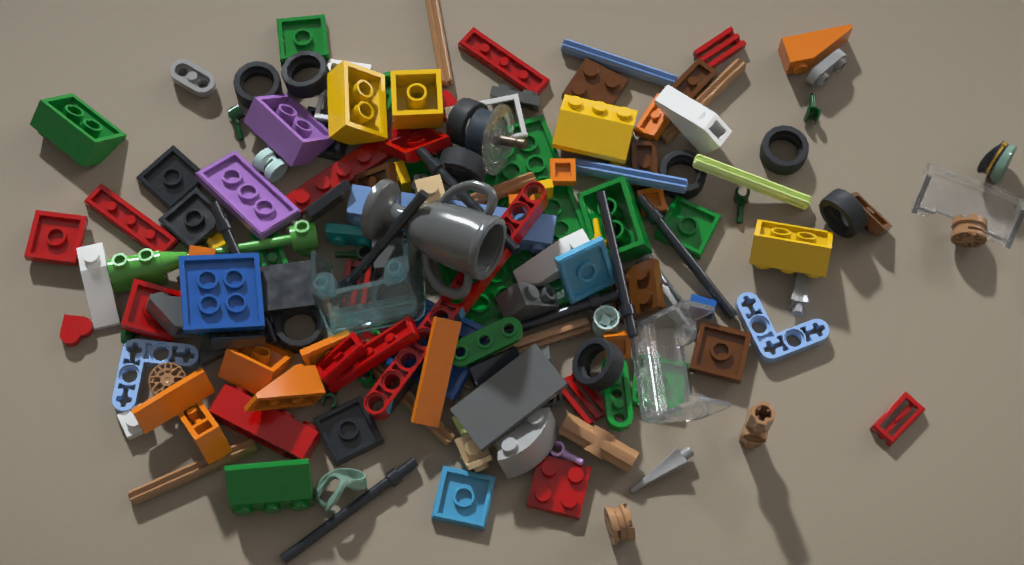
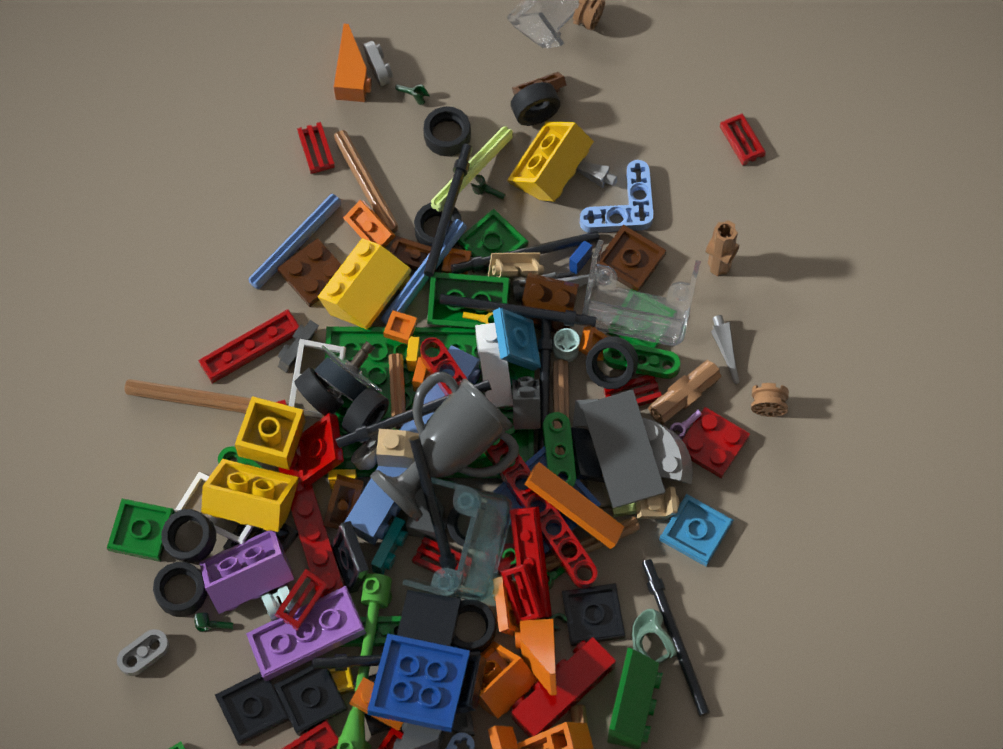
camera: 65 degrees left, 0 degrees up
(284, 190) = (288, 618): none -> red tile
(353, 254) = (409, 552): dark green hand -> none
(667, 249) = (515, 264): none -> tan hinge
(695, 79) = (344, 183): reddish brown plate -> none
(695, 121) = (395, 191): white slope -> none
(742, 167) = (460, 170): none -> black bar

